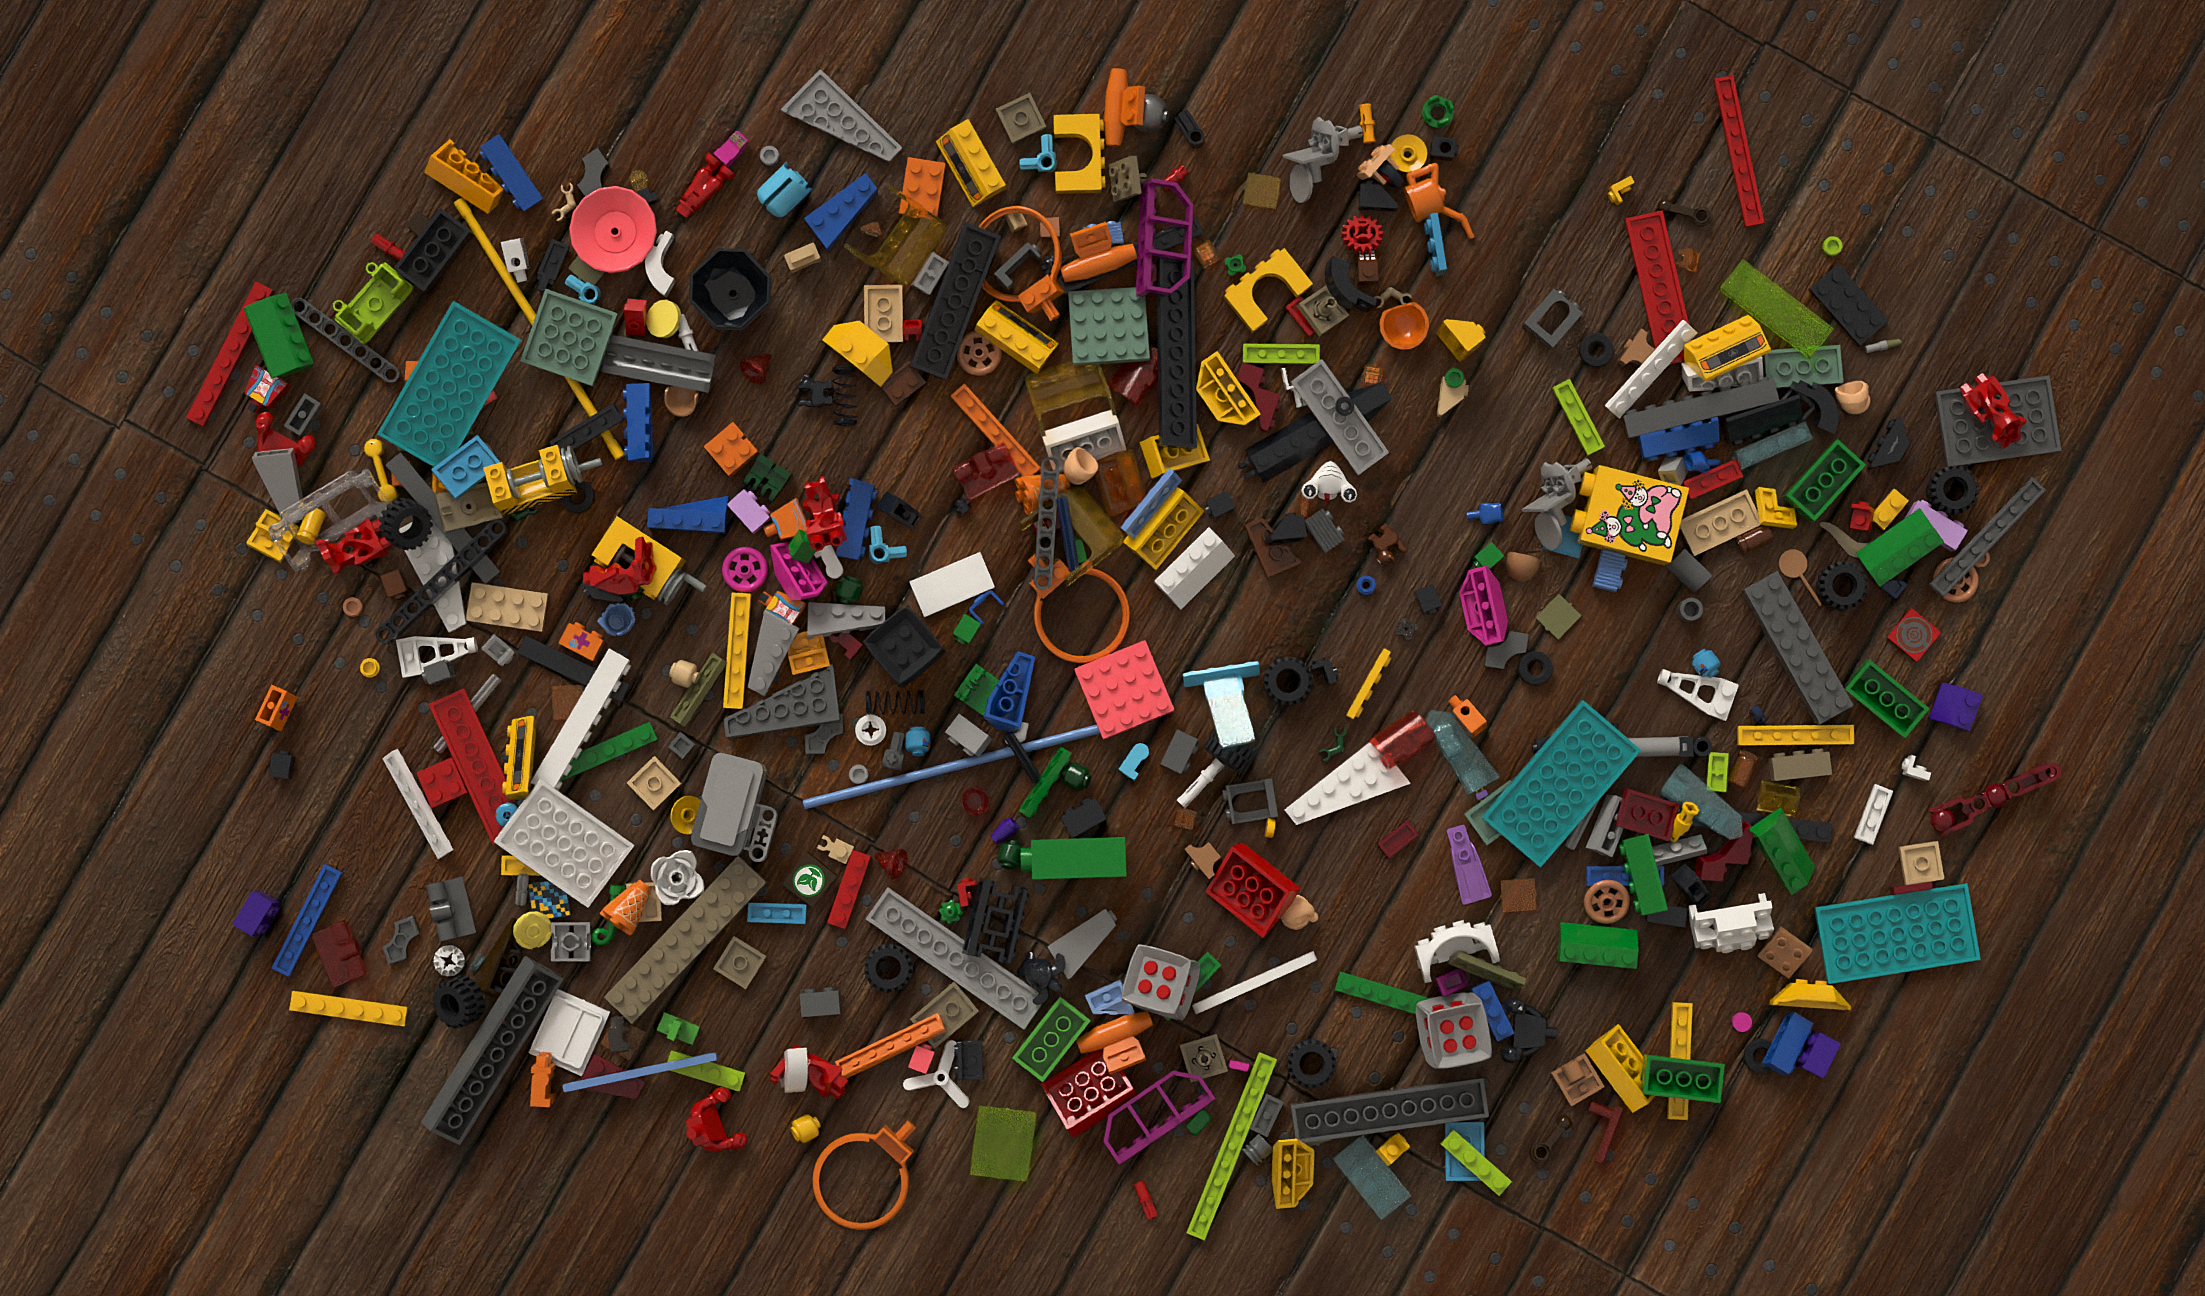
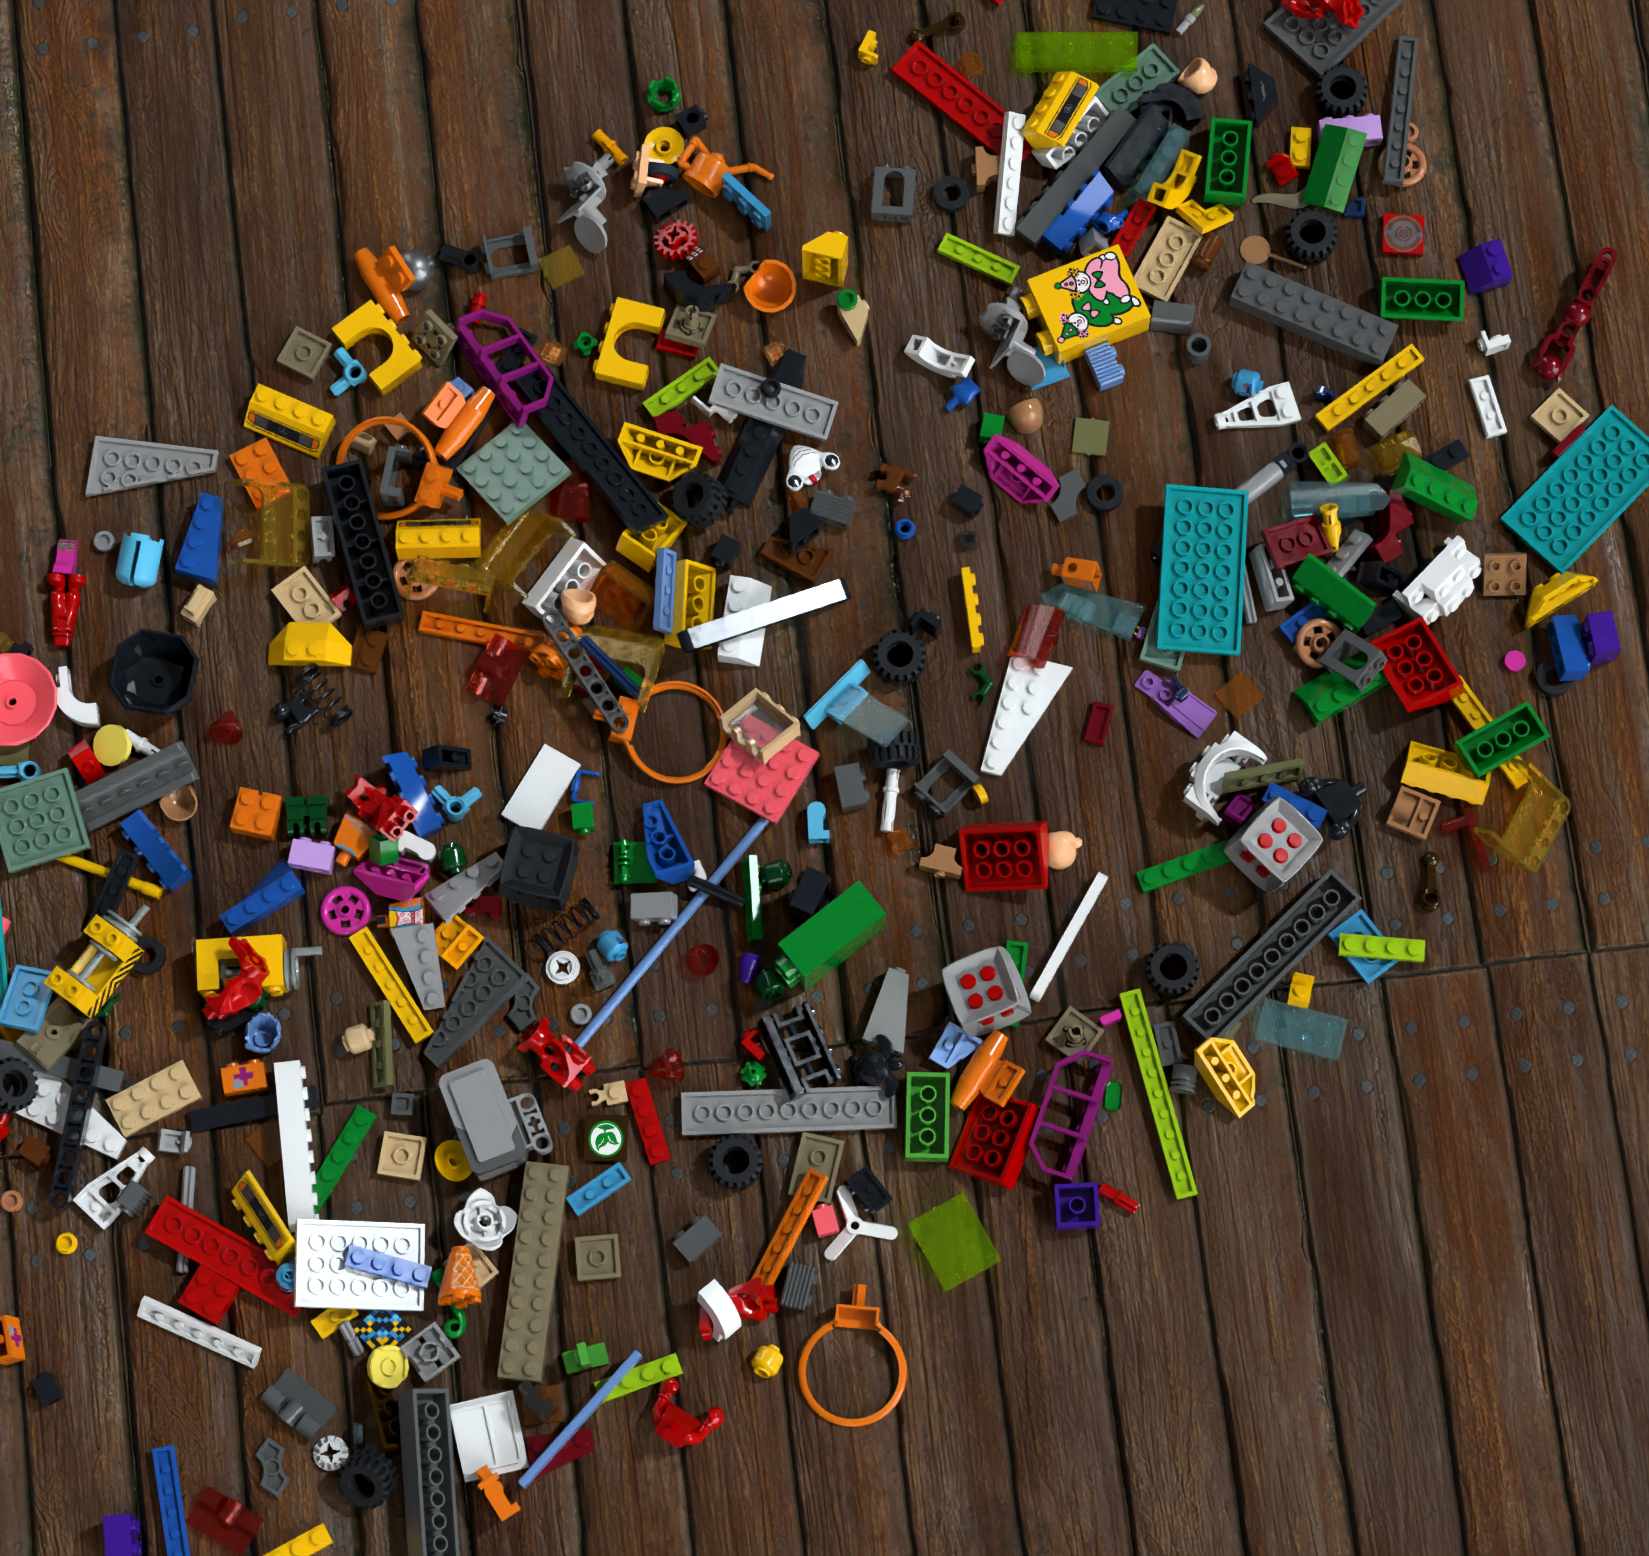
camera: 30 degrees left, 10 degrees down
(583, 859) = (387, 1266): none -> plate
(812, 772) = (569, 1064): none -> red hips
(867, 1091) = (798, 1286): none -> dark grey brick
(997, 380) = (451, 576): none -> clear yellow windscreen
(1109, 1184) = (1076, 1206): none -> dark purple brick
(1146, 658) = (760, 725): none -> window
(1209, 578) = (763, 616): none -> beam
(1219, 442) = (687, 492): none -> black tyre
(1224, 136) = (492, 245): none -> dark grey panel
(1475, 864) = (1182, 693): none -> dark blue hand
(1489, 473) = (938, 359): none -> white arch
(1616, 919) = (1341, 648): none -> dark grey panel
(1659, 1154) = (1534, 822): none -> clear yellow windscreen
(1663, 974) = (1418, 666): none -> red slope
(1768, 473) = (1179, 184): none -> yellow arch

